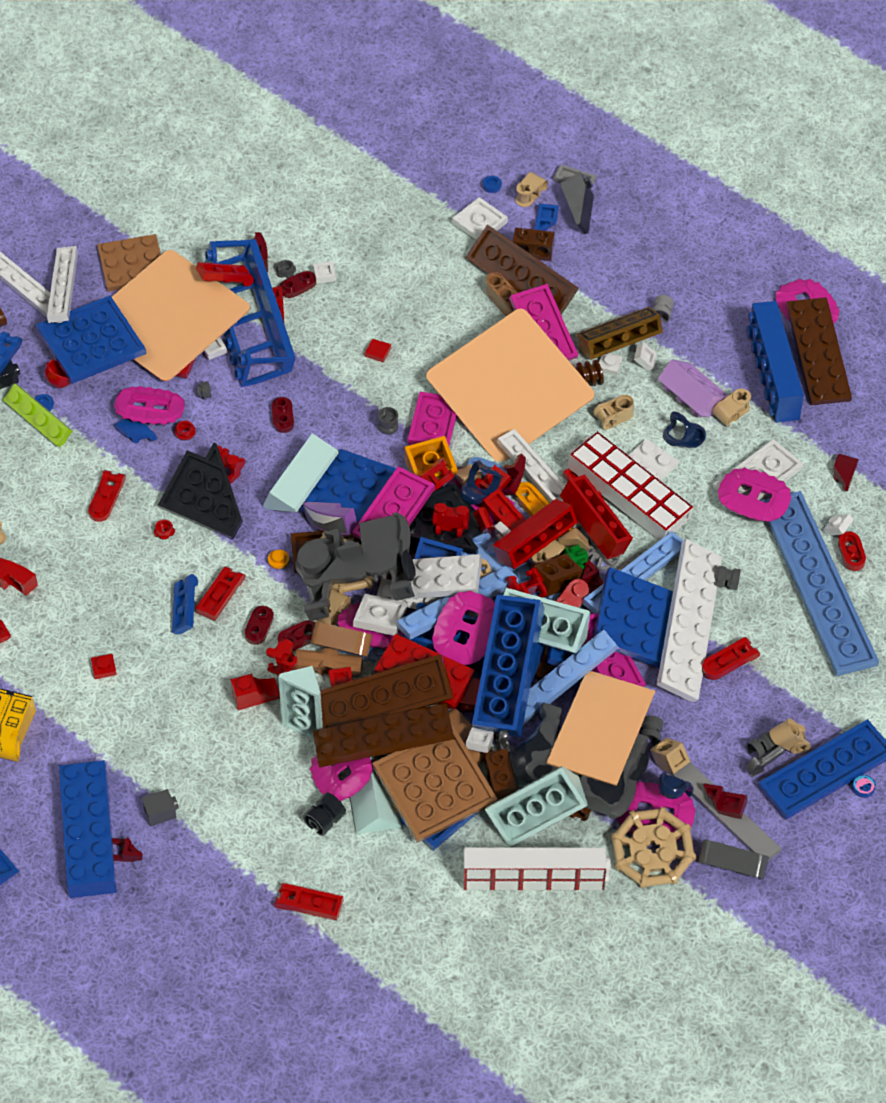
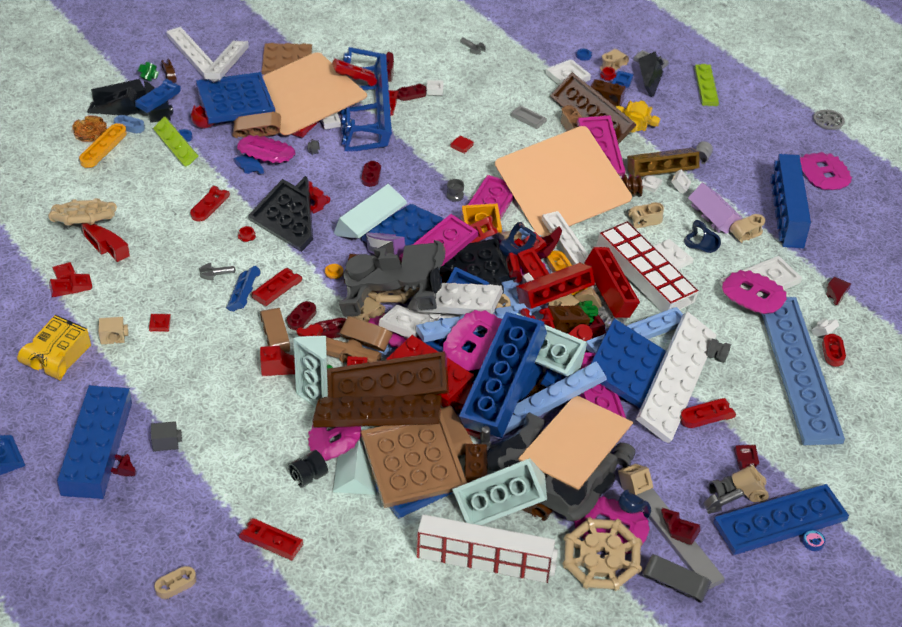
camera: 10 degrees right, 10 degrees down
(56, 688) = (112, 330): none -> tan brick
(129, 373) = (257, 124): none -> medium nougat beam
(143, 586) = (212, 272): none -> flat silver bar
(185, 425) = (288, 170): red plate -> none
(229, 973) = (175, 582): none -> tan beam
(236, 649) = (275, 329): none -> medium nougat beam
(283, 265) = (405, 80): dark grey plate -> none
(354, 197) = (474, 48): none -> flat silver bar
(446, 294) = (528, 117): none -> light grey tile
(451, 519) = (485, 260): red piece -> none
(479, 740) = (463, 432): white plate -> none
(530, 206) = (608, 73): none -> red plate
(578, 268) = (640, 114): none -> yellow piece
(648, 203) = (706, 85): none -> lime plate
(780, 704) = (746, 456): none -> dark red slope
(800, 227) = (828, 119): none -> light grey wheel
(818, 351) = (829, 202): reddish brown plate -> none

